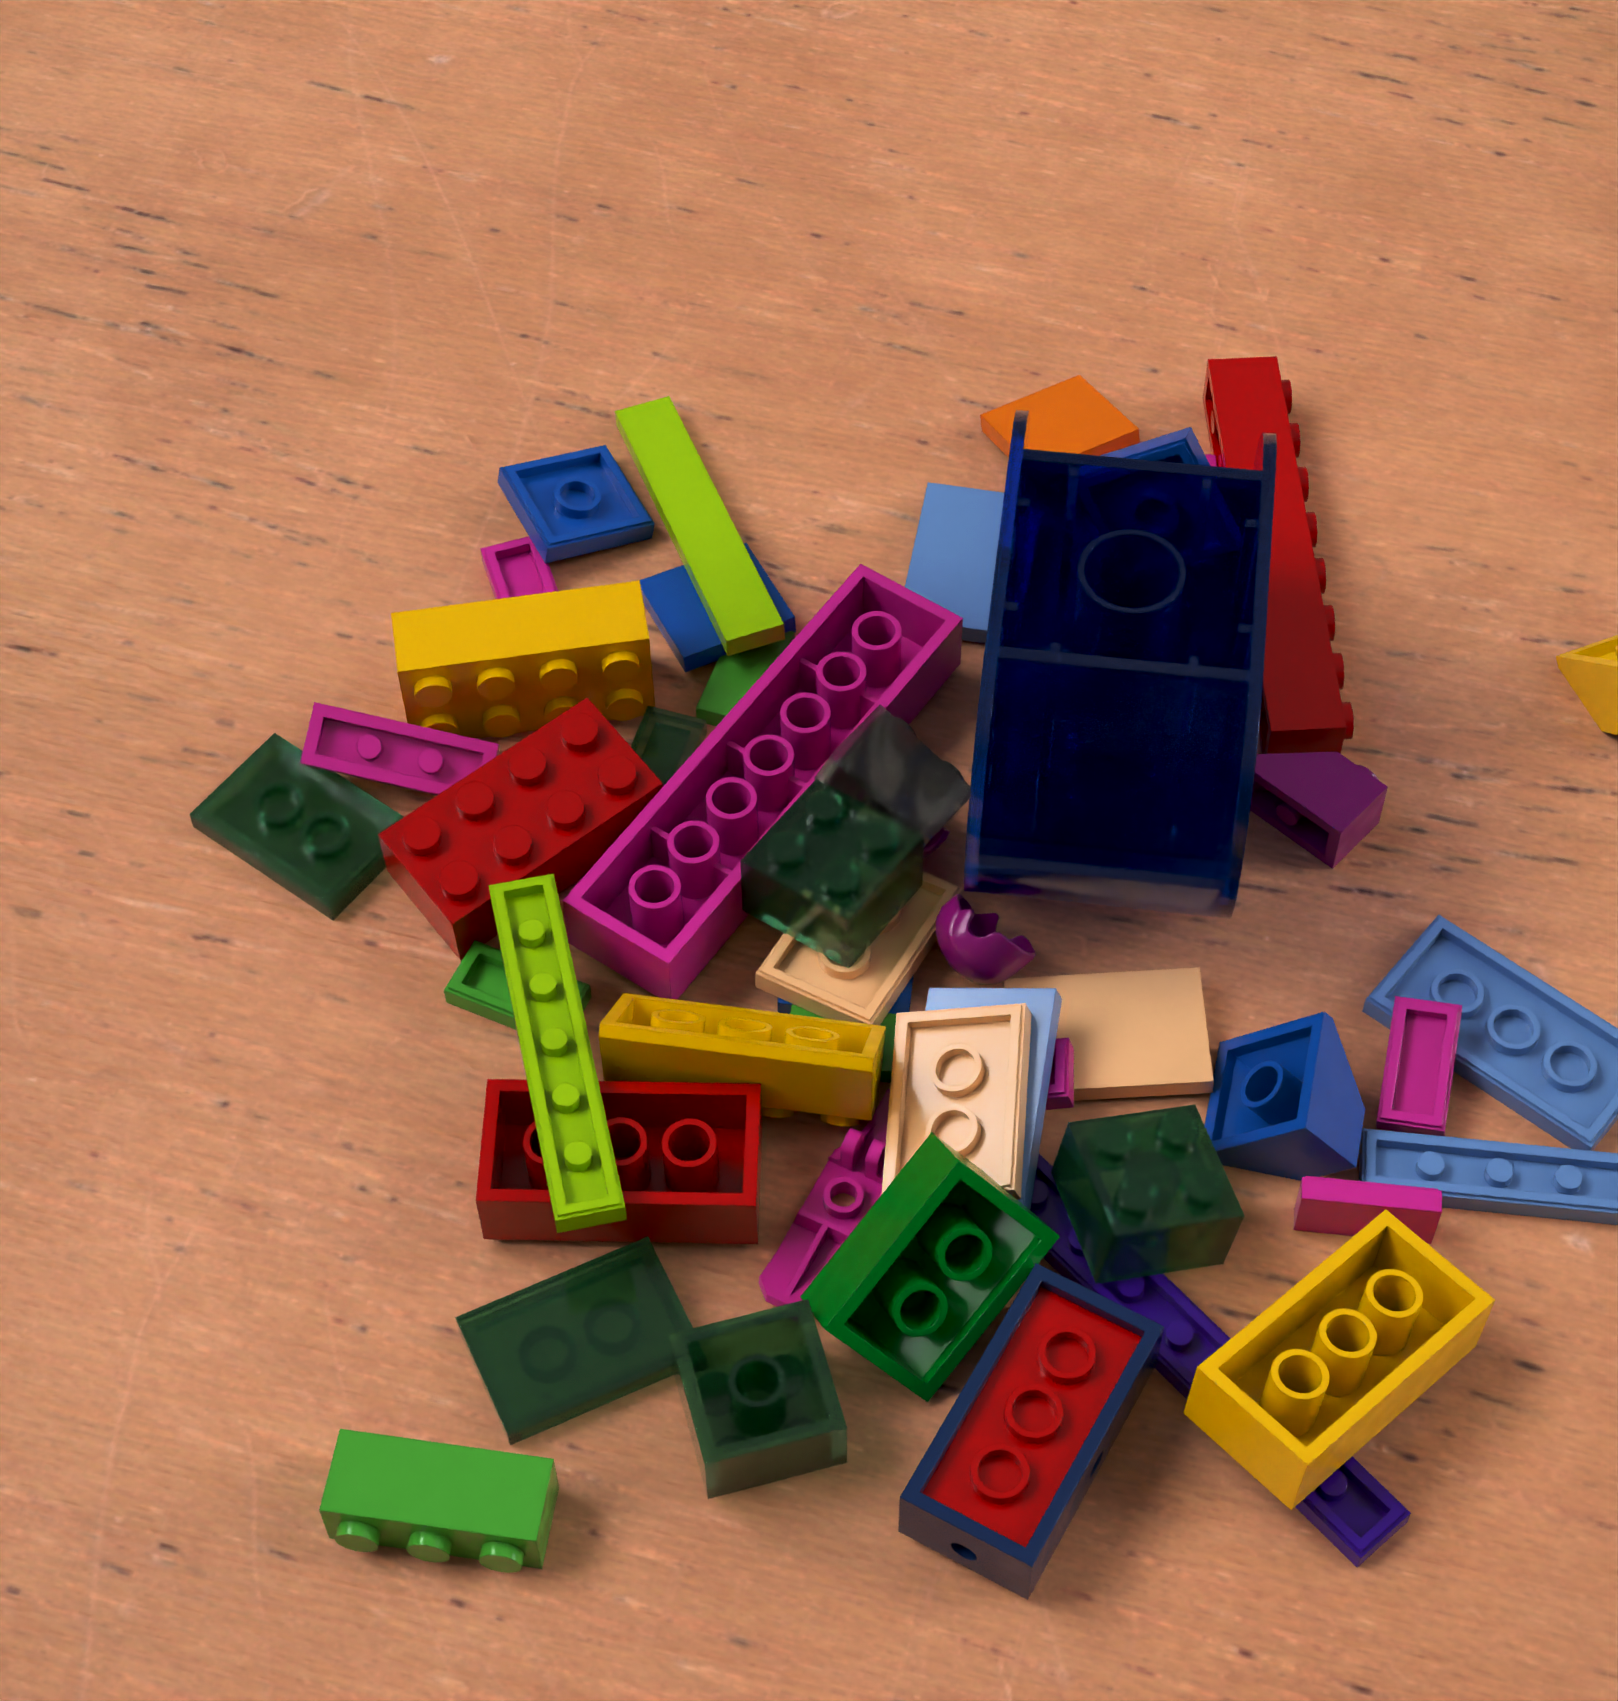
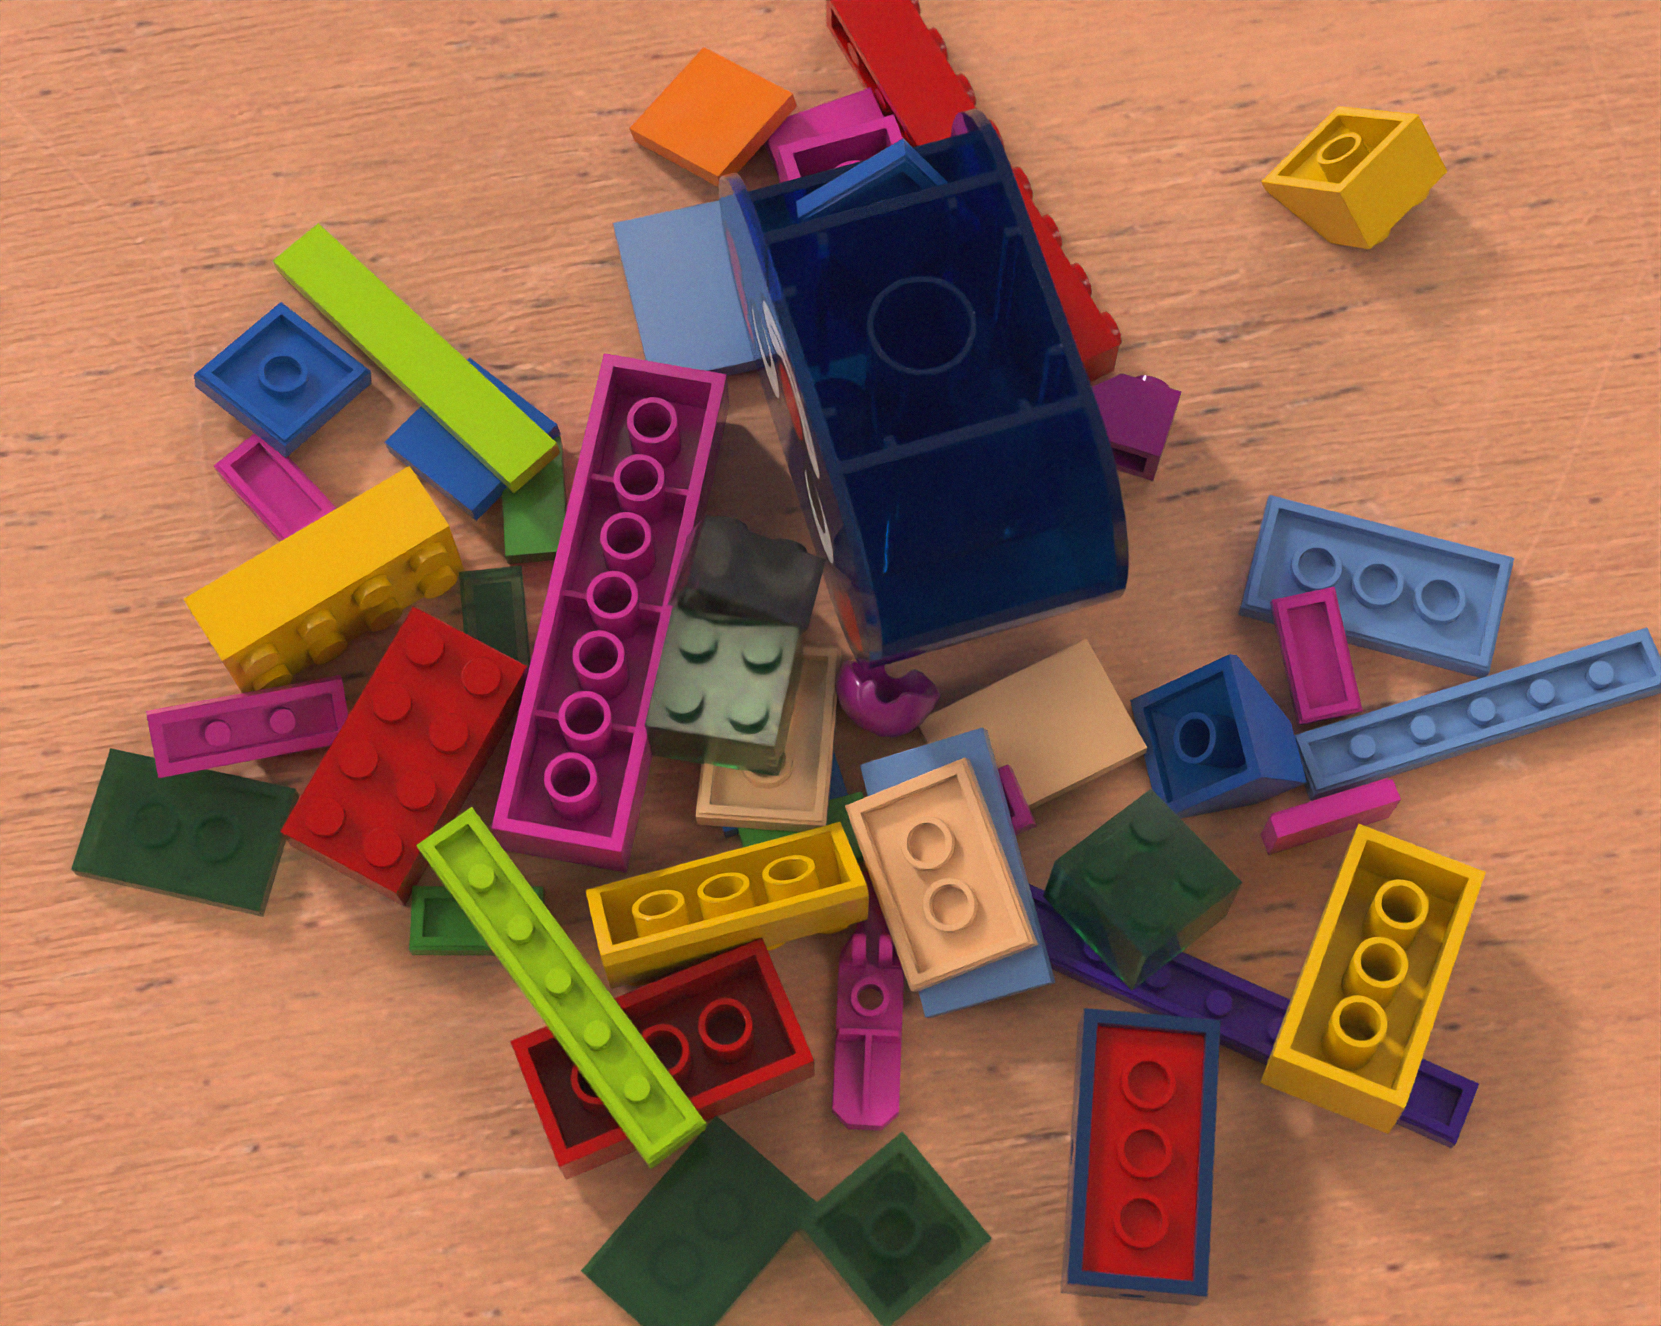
camera: 25 degrees left, 15 degrees up
(928, 1268) = (987, 1048): green slope -> none

